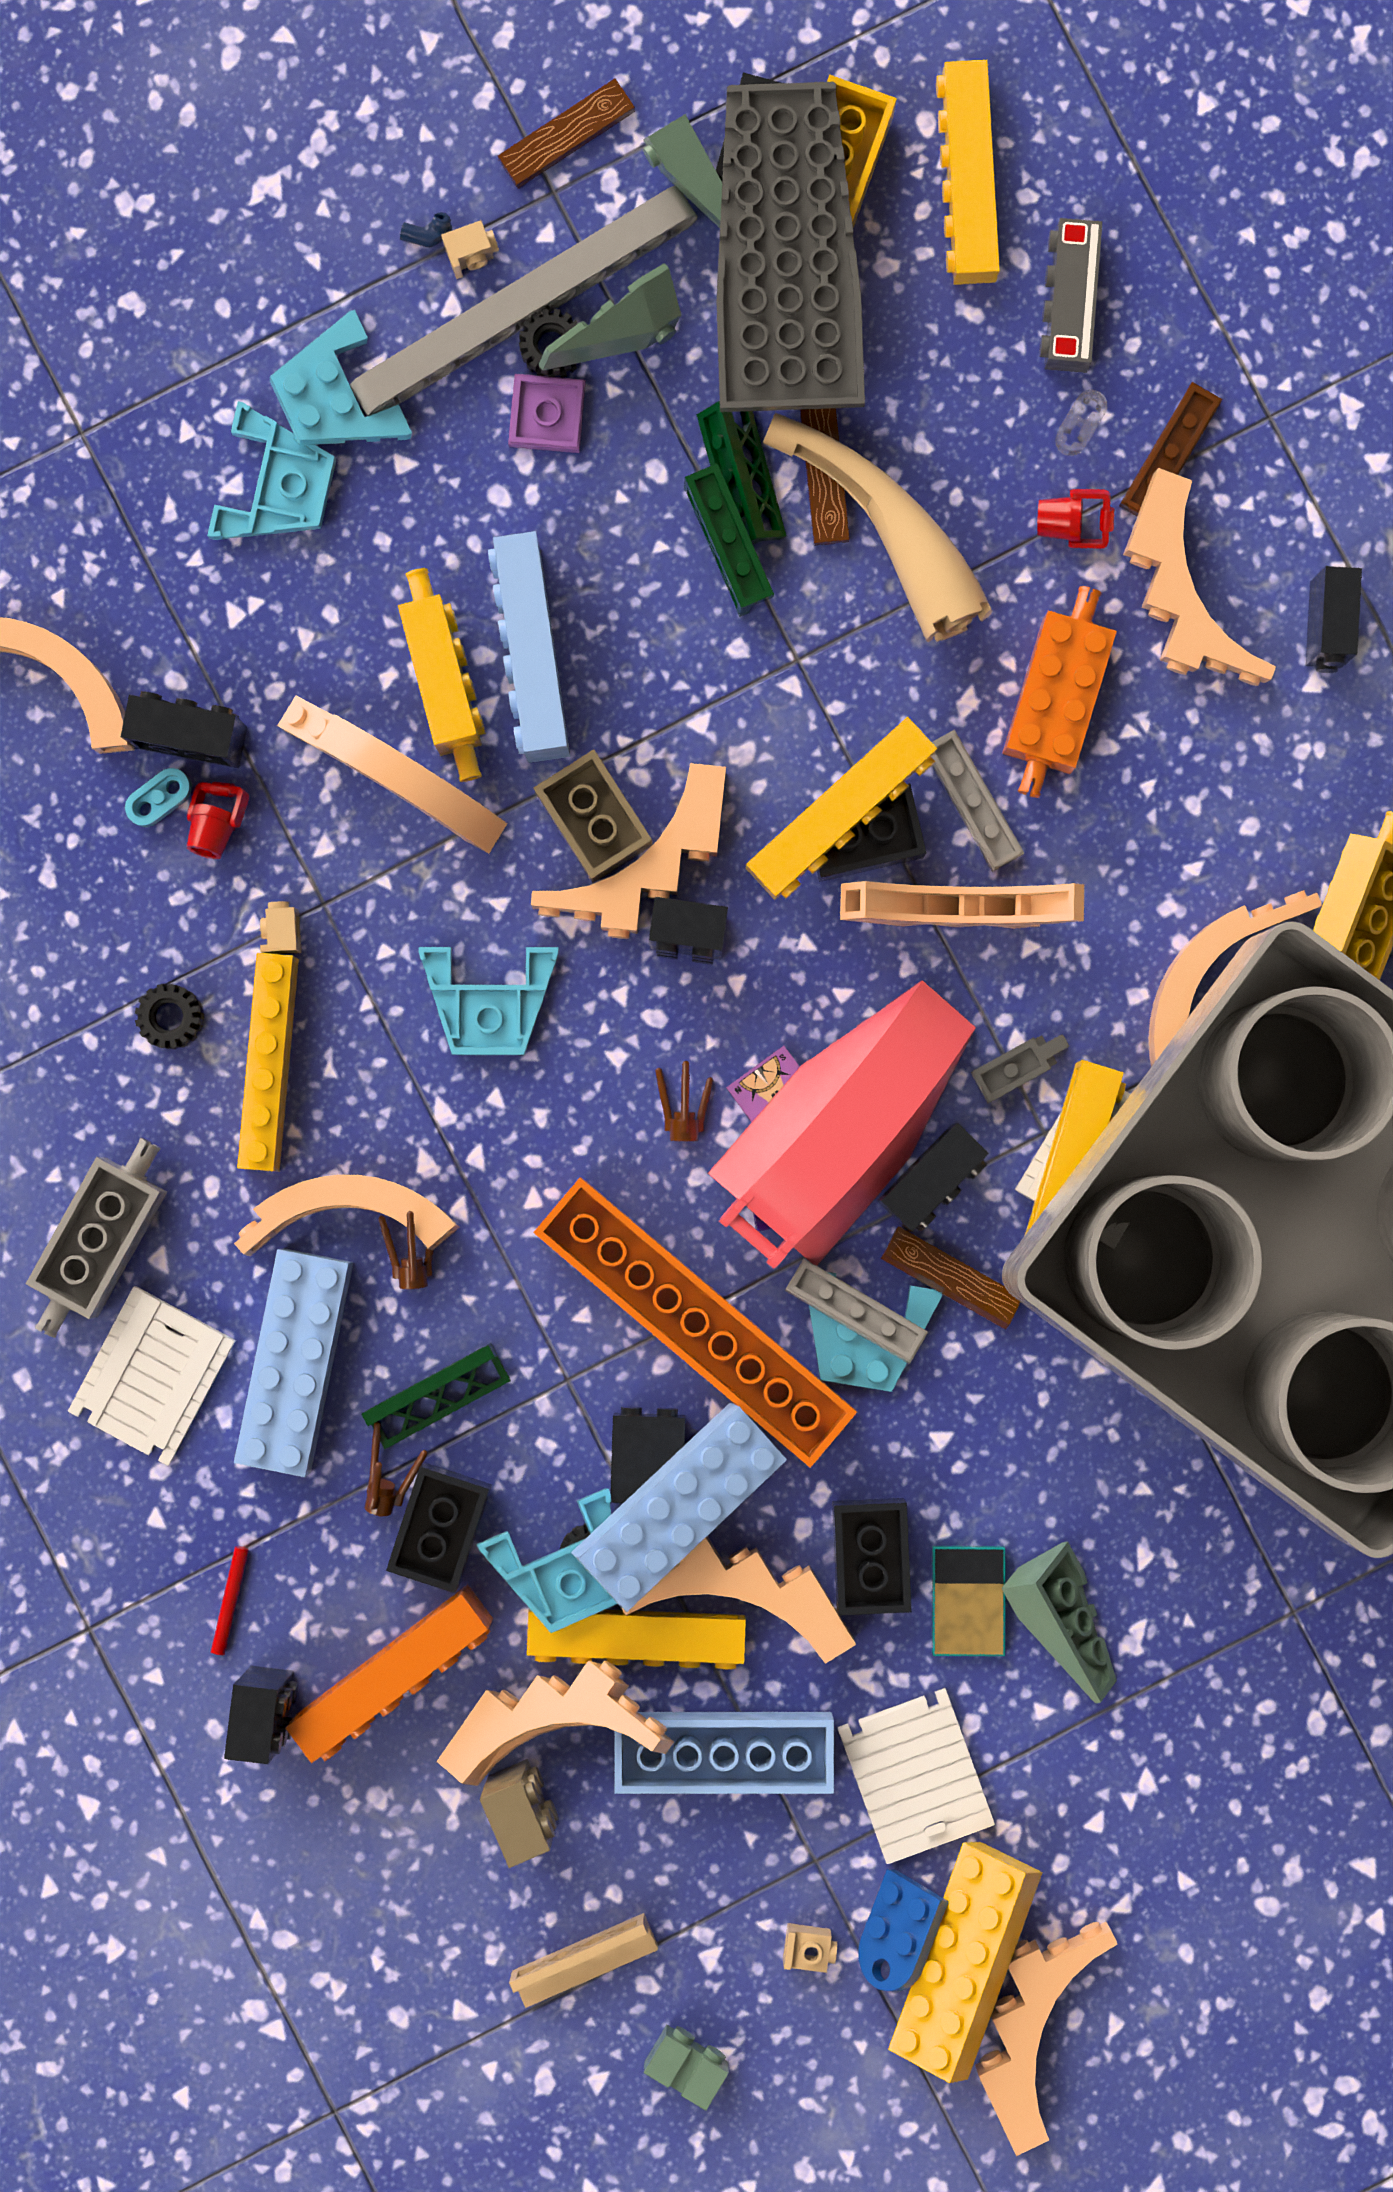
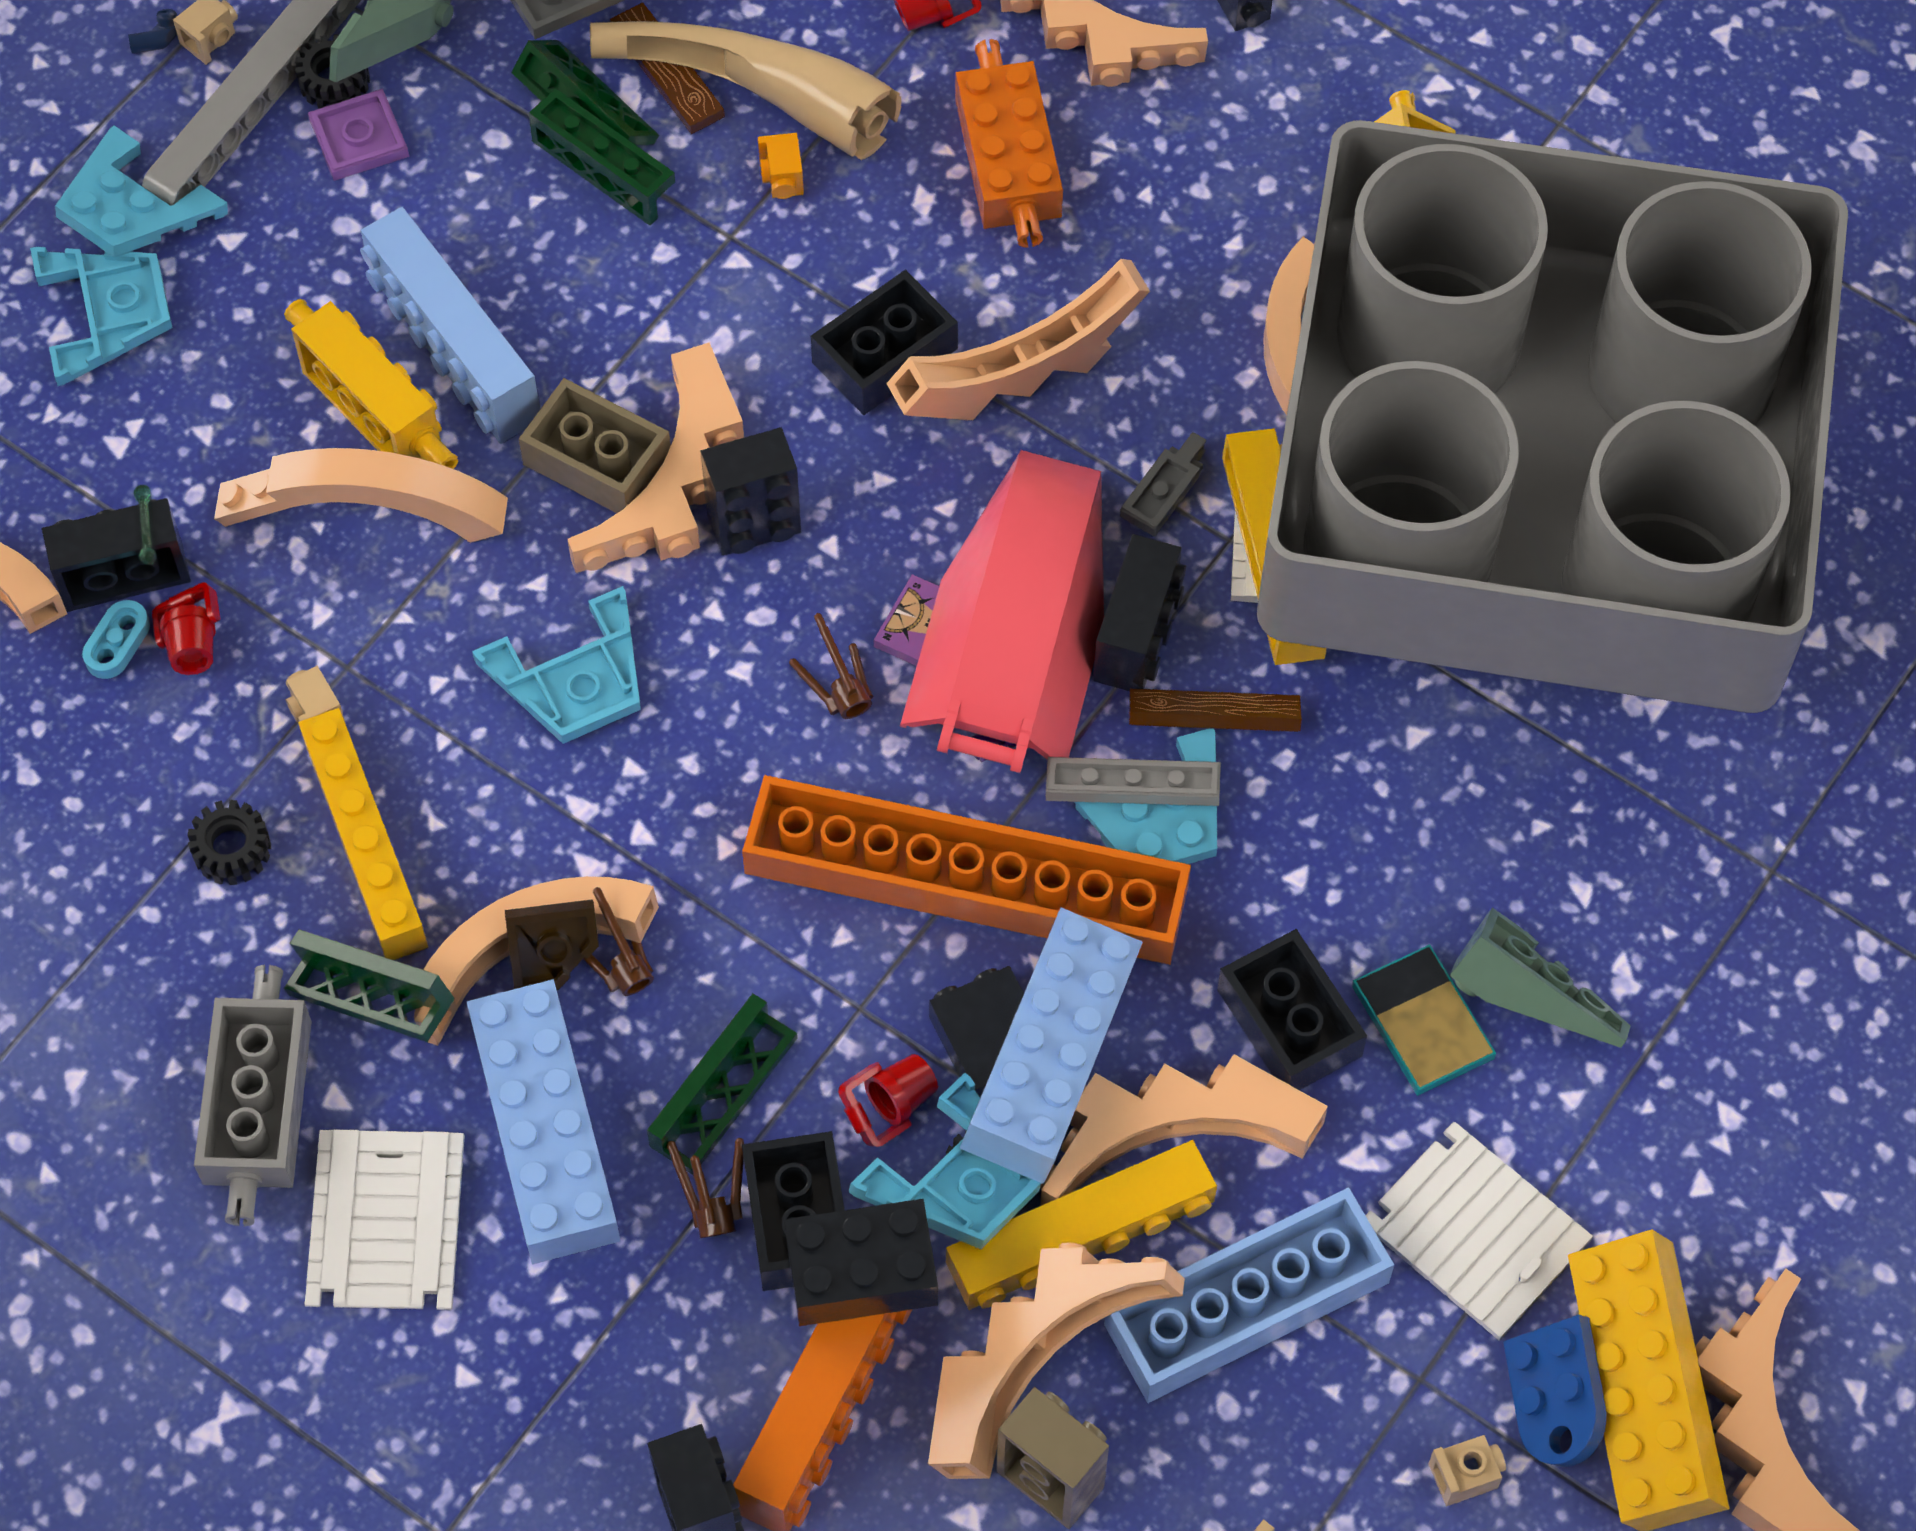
camera: 30 degrees left, 25 degrees down
(217, 705) = (143, 495): none -> clear green hinge
(219, 1188) = (372, 971): none -> dark green fence
(229, 1600) = (595, 1421): red bar -> none
(358, 1229) = (550, 941): none -> dark brown plate
(449, 1621) = (861, 1262): none -> black brick
(558, 1467) = (893, 1093): none -> red piece
(842, 808) = (848, 314): yellow brick -> none
(867, 620) = (781, 164): none -> light orange brick
(974, 802) = (978, 277): light grey tile -> none

